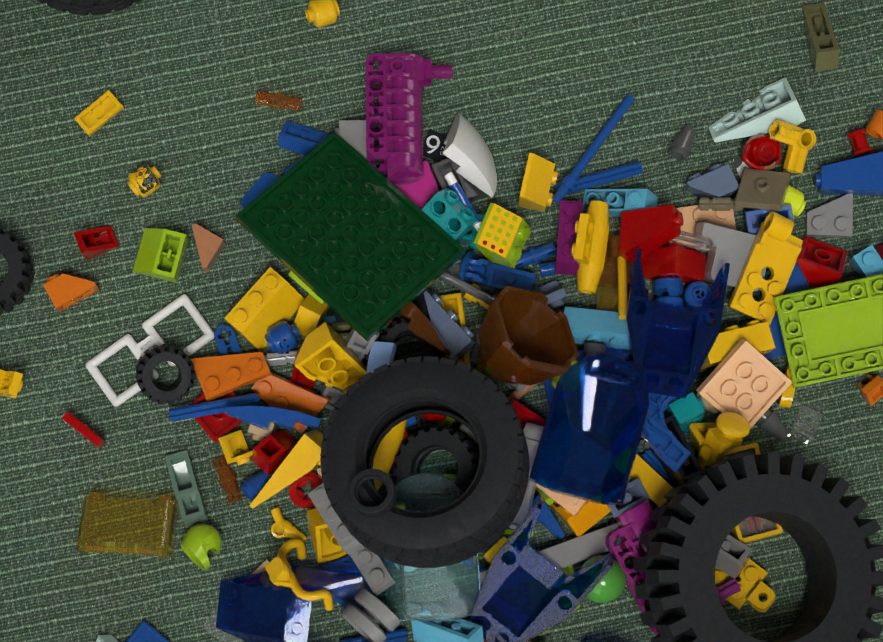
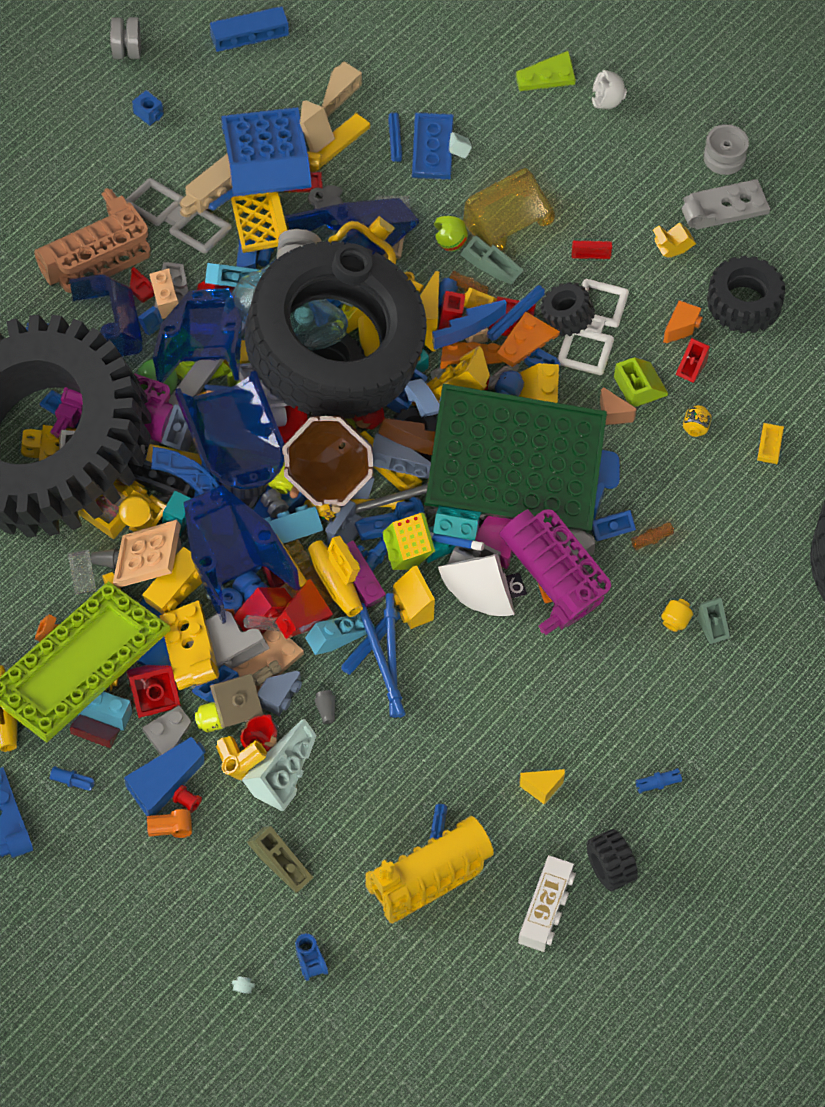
camera: 140 degrees right, 20 degrees down
(621, 107) = (393, 694): none -> blue bar

